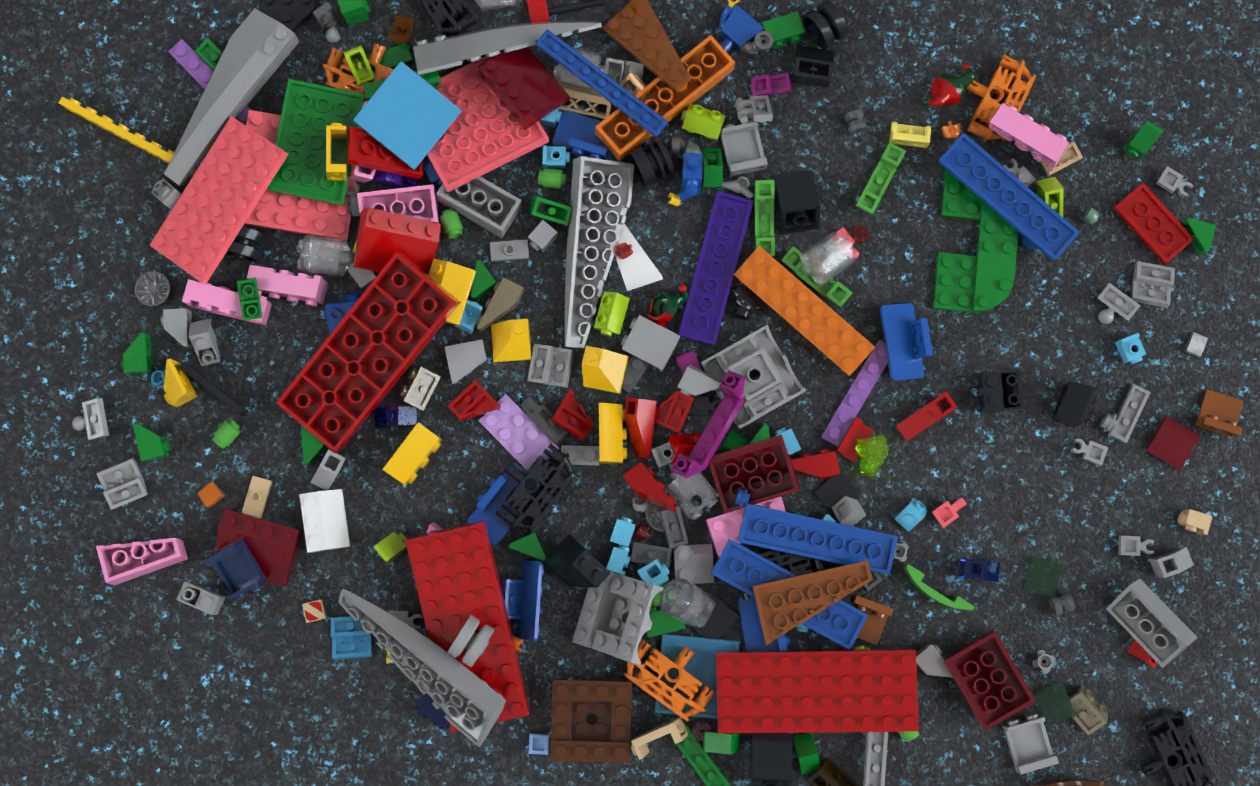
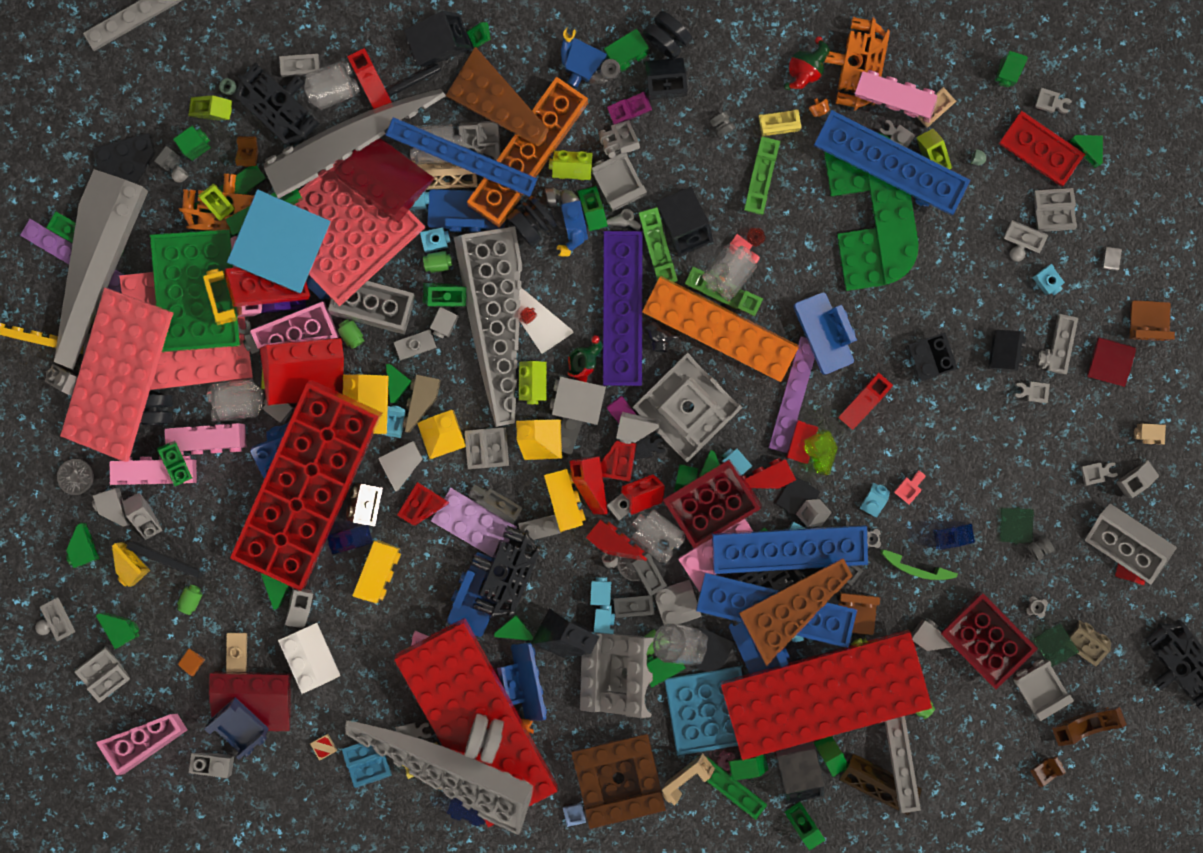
camera: 15 degrees left, 5 degrees up
(156, 378) = (105, 563): dark azure plate -> none
(391, 546) = (381, 665): lime slope -> none
(572, 417) = (522, 493): red wing -> none
(633, 83) = (492, 147): light nougat slope -> none
(641, 532) = (619, 586): clear red plate -> none
(654, 568) = (635, 624): medium azure brick -> none
(662, 691) = (680, 734): orange piece -> none
(733, 386) = (664, 470): magenta slope -> none
(742, 497) = (707, 530): blue plate -> none

